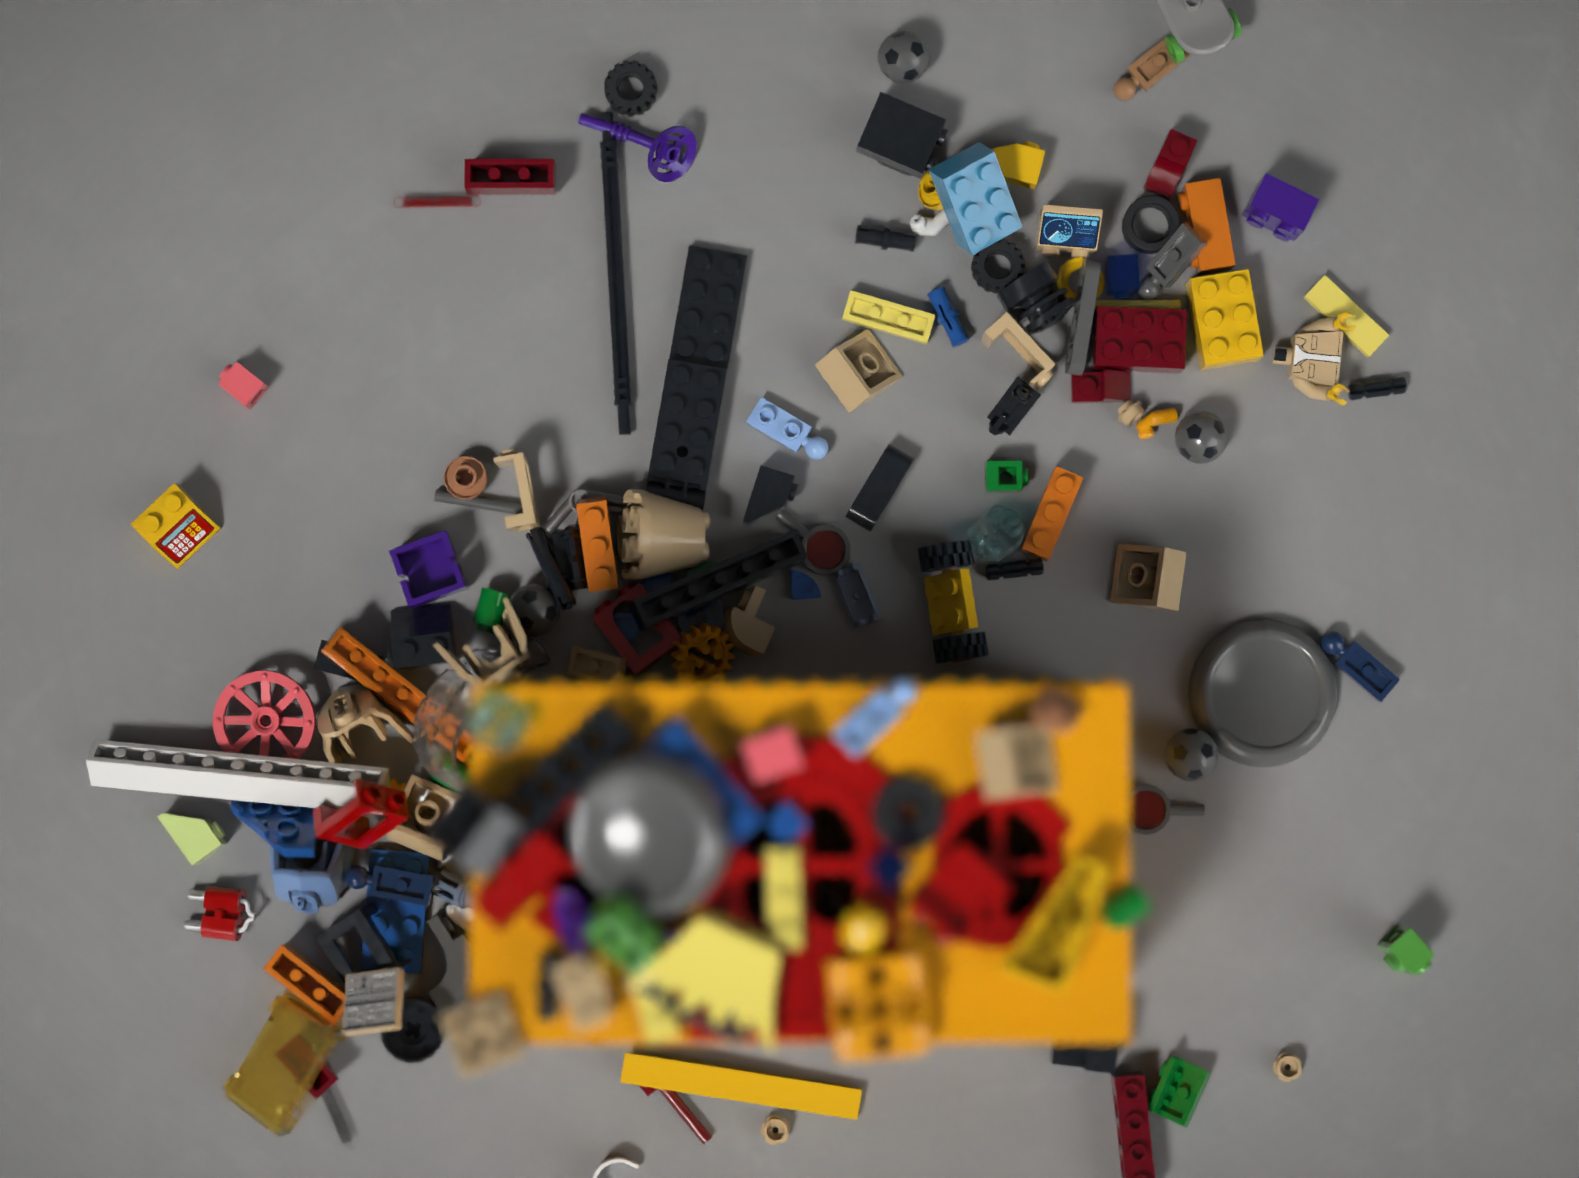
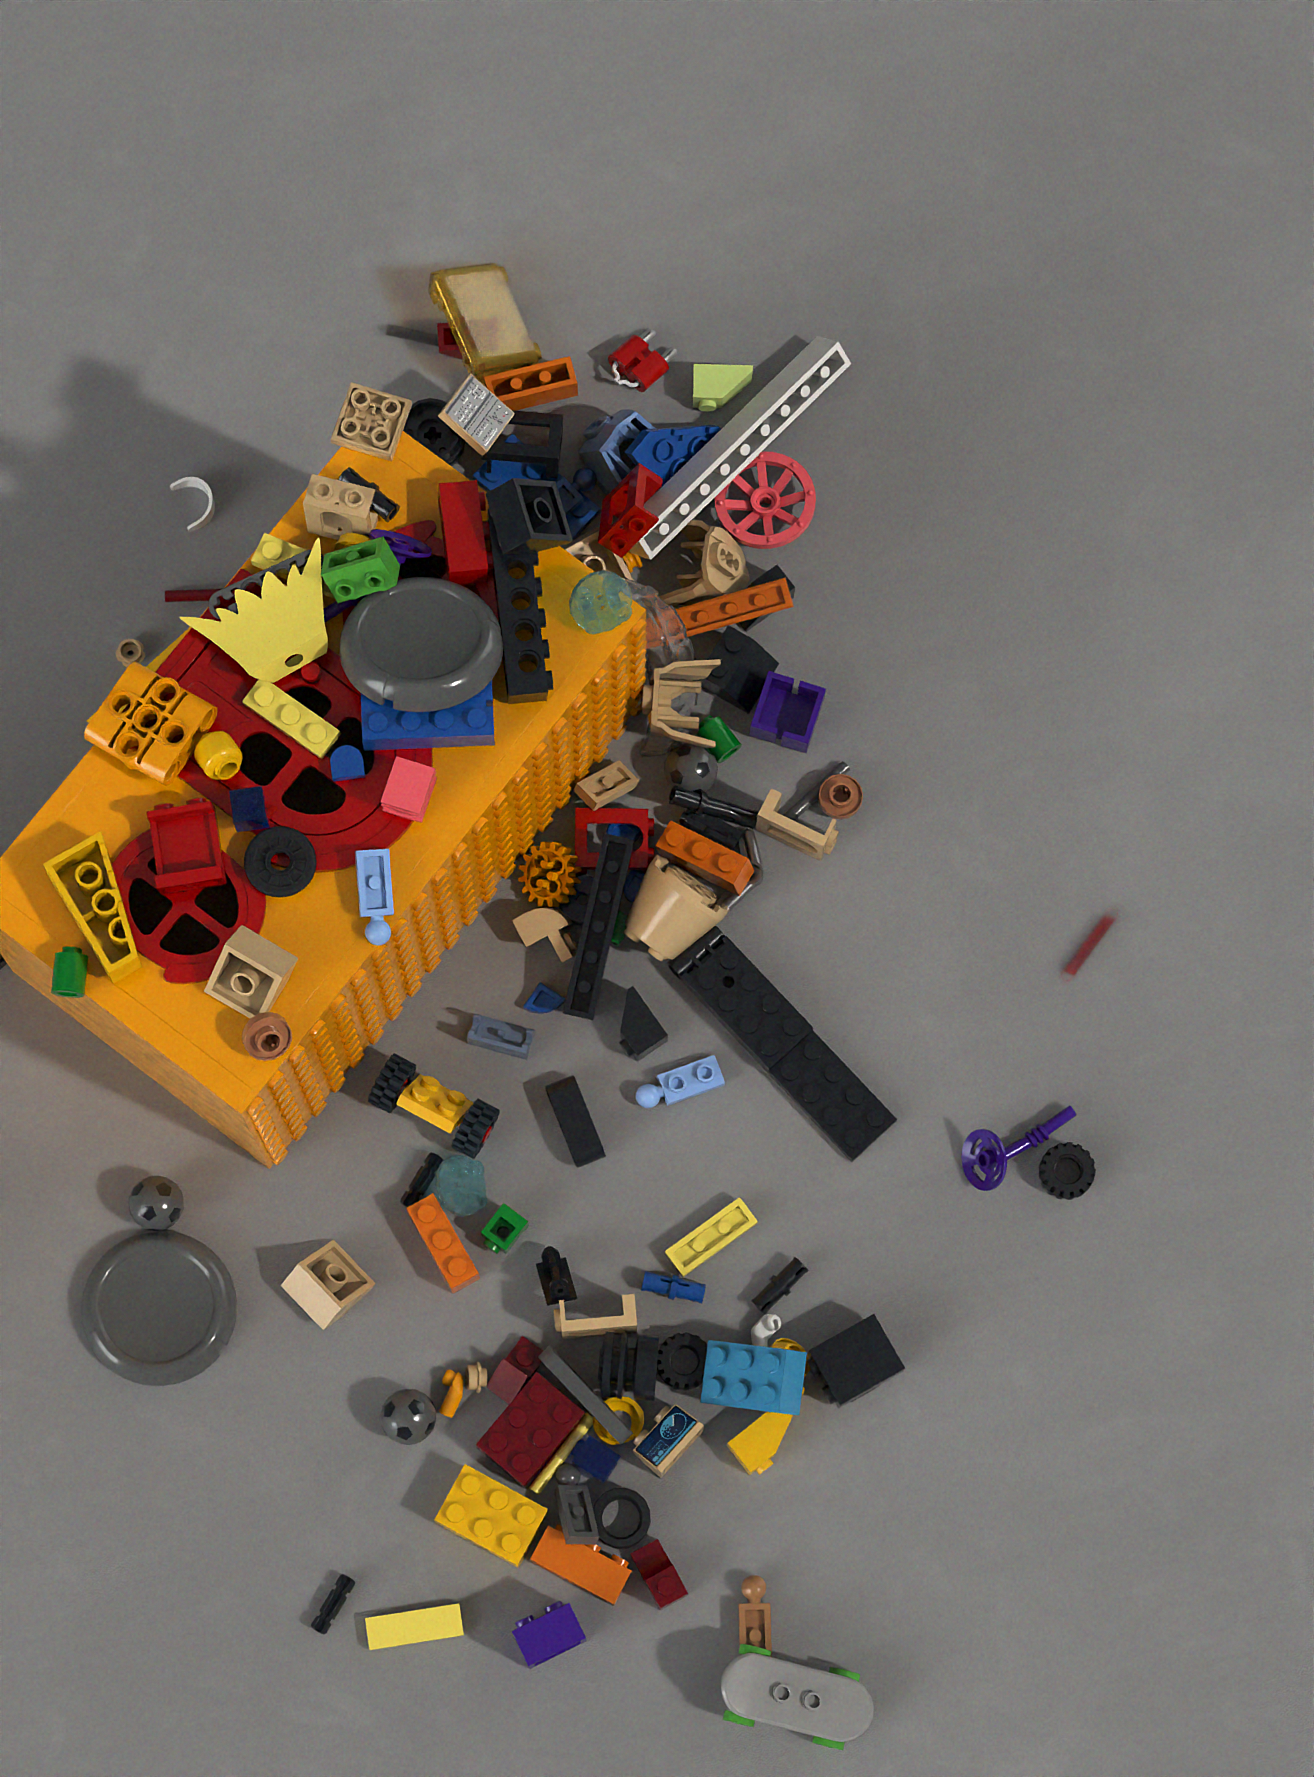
camera: 130 degrees right, 10 degrees down
(175, 526) = (976, 547): yellow slope -> none
(242, 384) = (1052, 679): coral brick -> none
(510, 176) = (1064, 1014): dark red brick -> none
(616, 282) = (916, 1041): black axle -> none
(824, 545) = (561, 1039): piece -> none
(858, 370) = (685, 1178): tan slope -> none
(903, 57) = (922, 1416): dark grey piece -> none
(1152, 809) = (142, 1139): piece -> none
(1316, 358) = (398, 1568): tan torso -> none
(1360, 666) = (116, 1404): dark blue plate -> none

